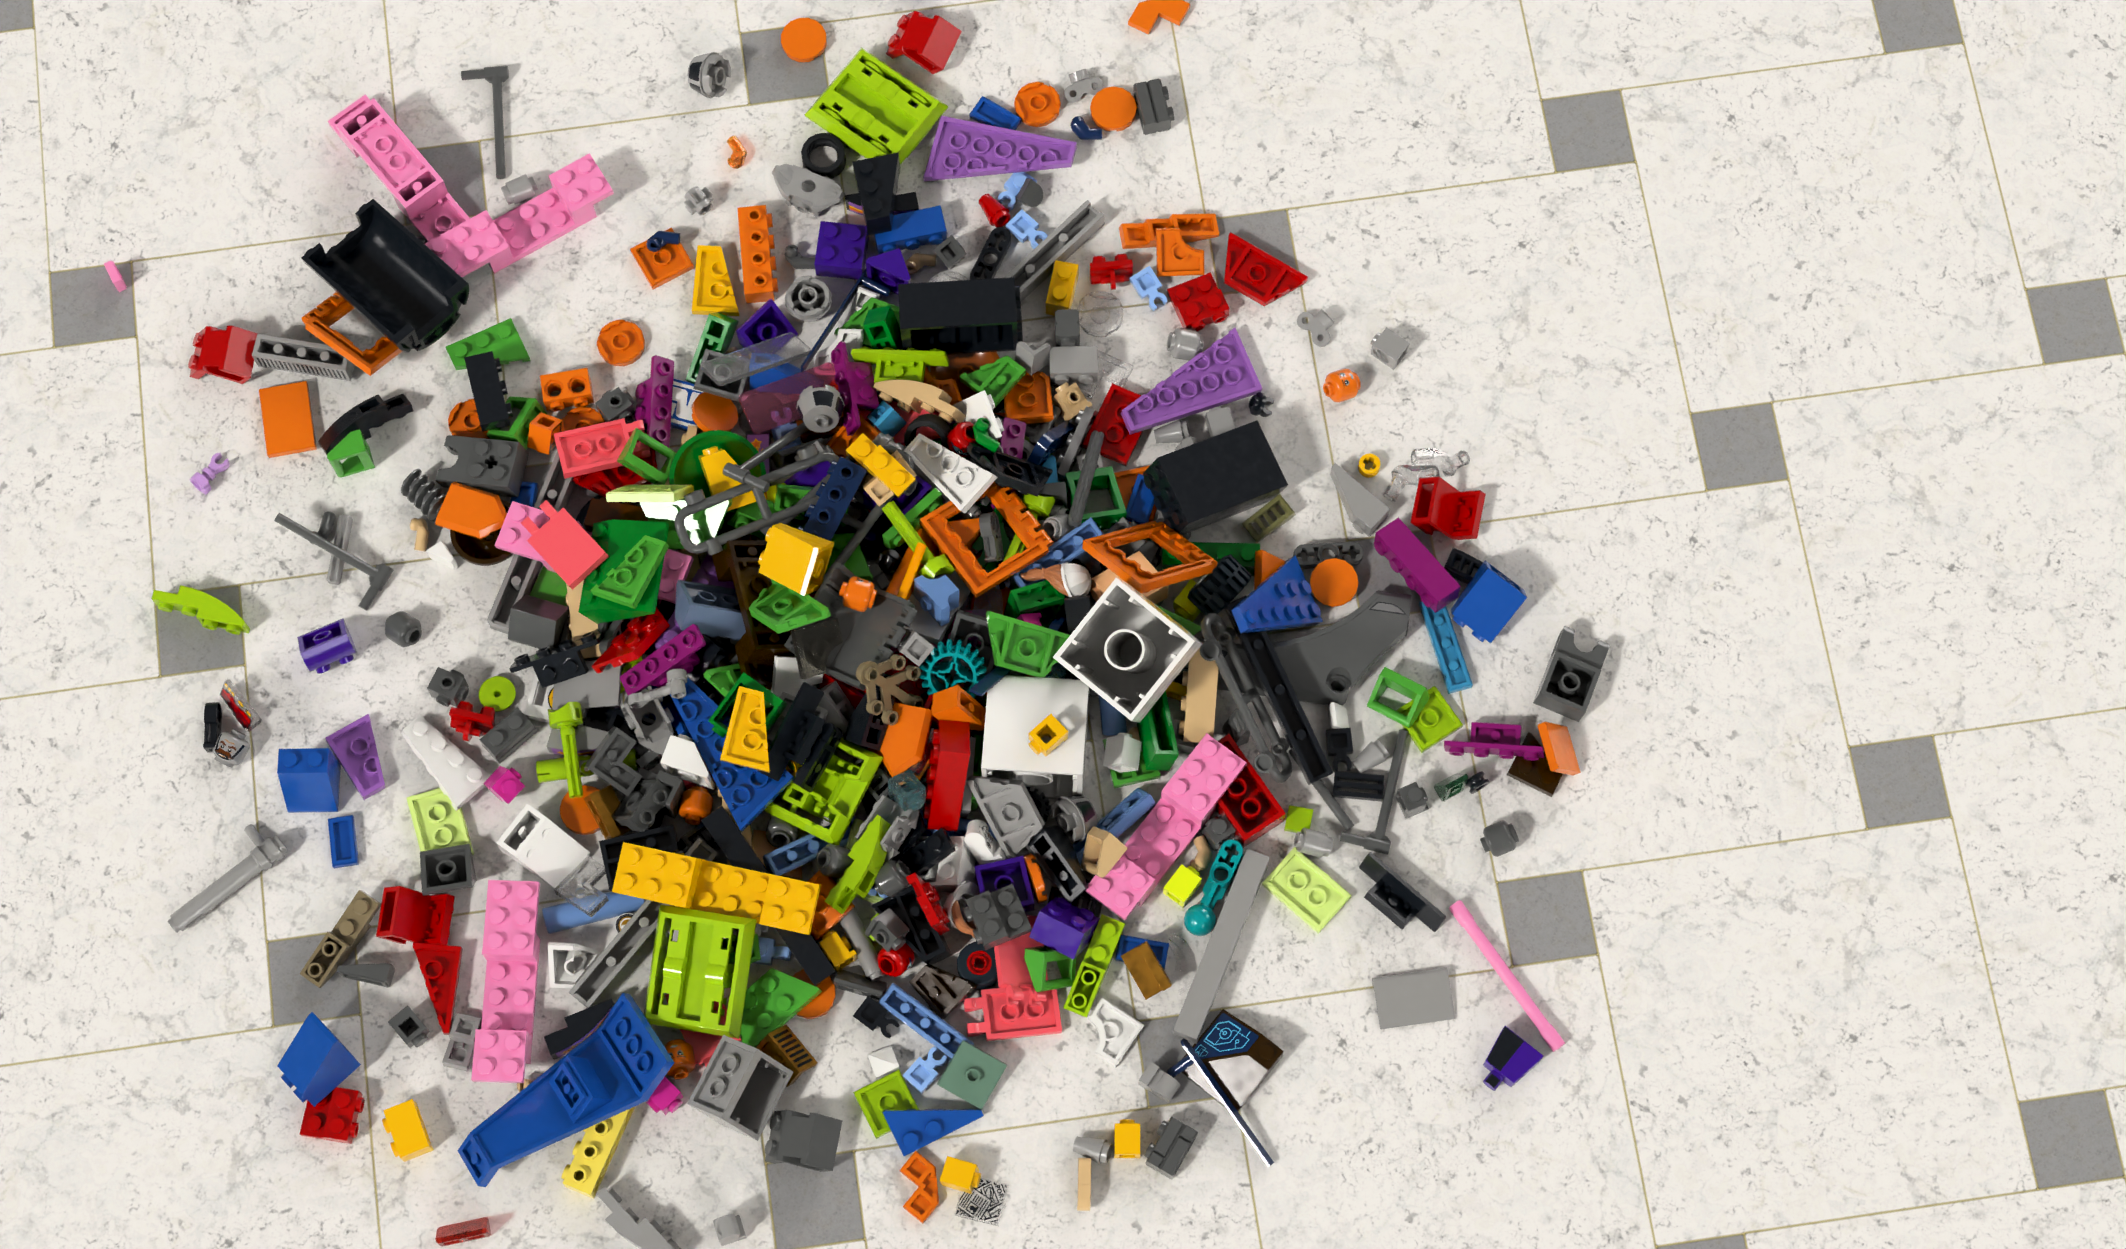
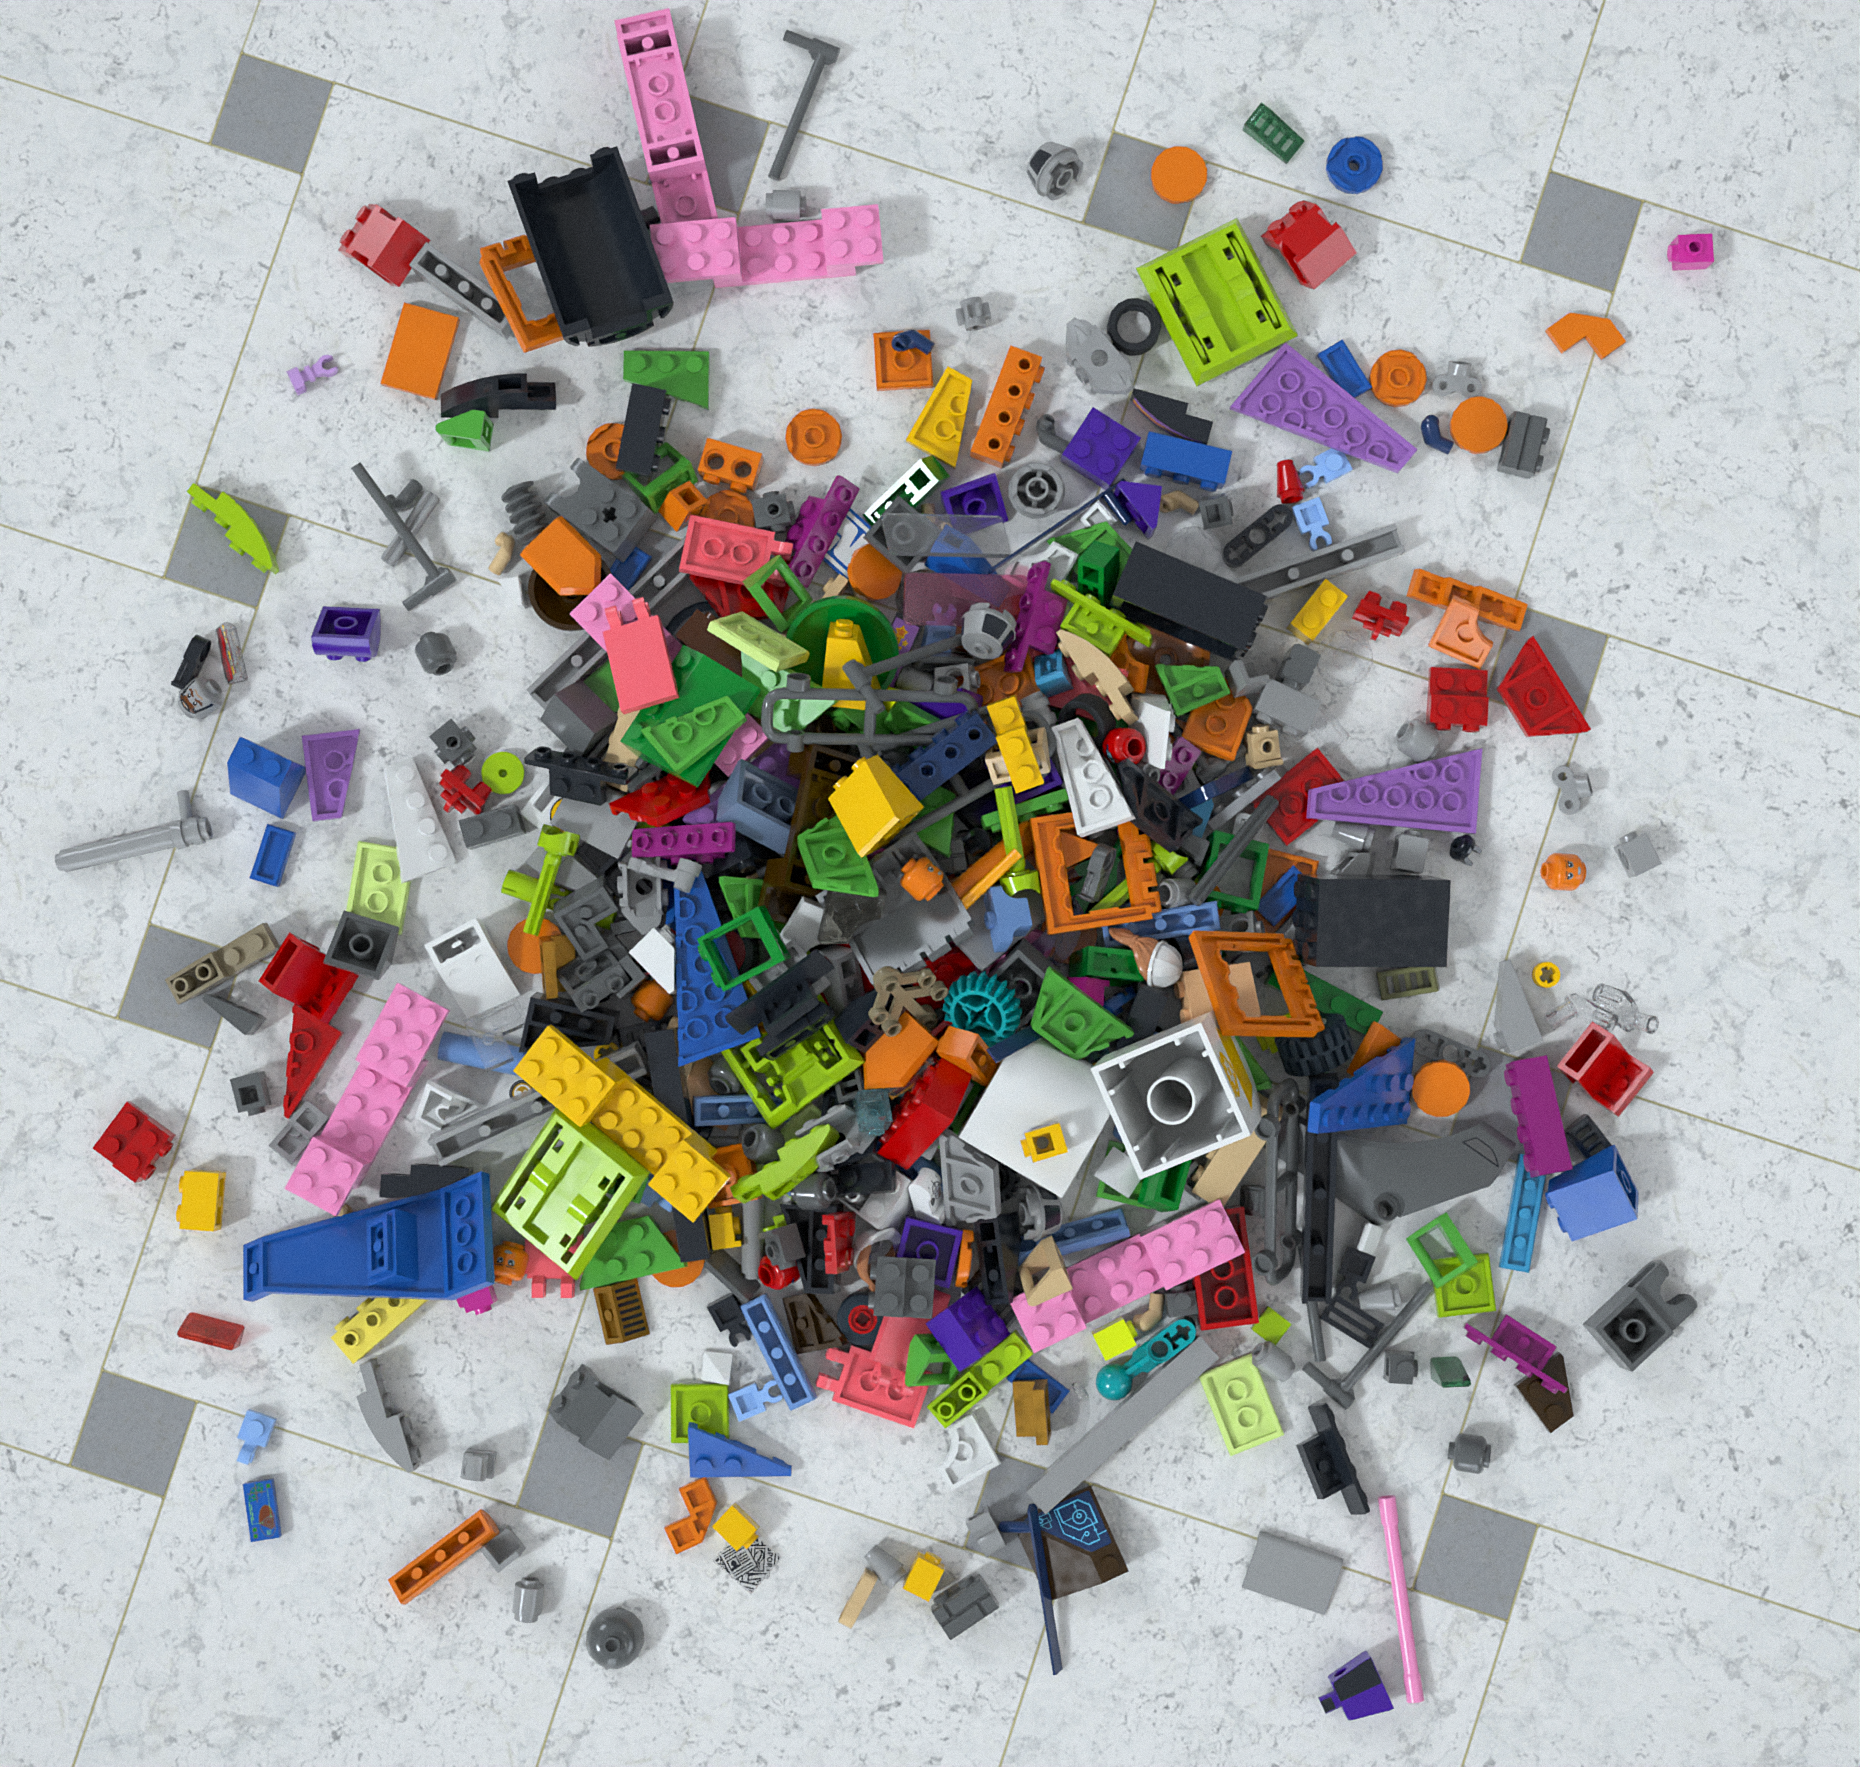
camera: 25 degrees right, 15 degrees up
(115, 276) = (307, 94): bright pink tile -> none
(316, 1061) = (139, 1086): blue slope -> none
(505, 784) = (464, 880): dark pink brick -> none
(739, 152) = (1043, 277): clear orange arm -> none
(740, 1087) = (553, 1334): light grey container -> none
(747, 733) = (730, 976): yellow wing -> none
(877, 190) = (1171, 401): black wedge -> none
(915, 647) = (955, 968): light grey brick -> none
(972, 1074) = (799, 1430): sand green plate -> none
(982, 436) = (1143, 757): green arm -> none
(1030, 193) = (1337, 483): dark grey tile -> none
(1147, 284) = (1411, 650): light blue plate -> none
(1477, 782) = (1479, 1381): black bush -> none
(1558, 748) = (1582, 1392): orange tile -> none

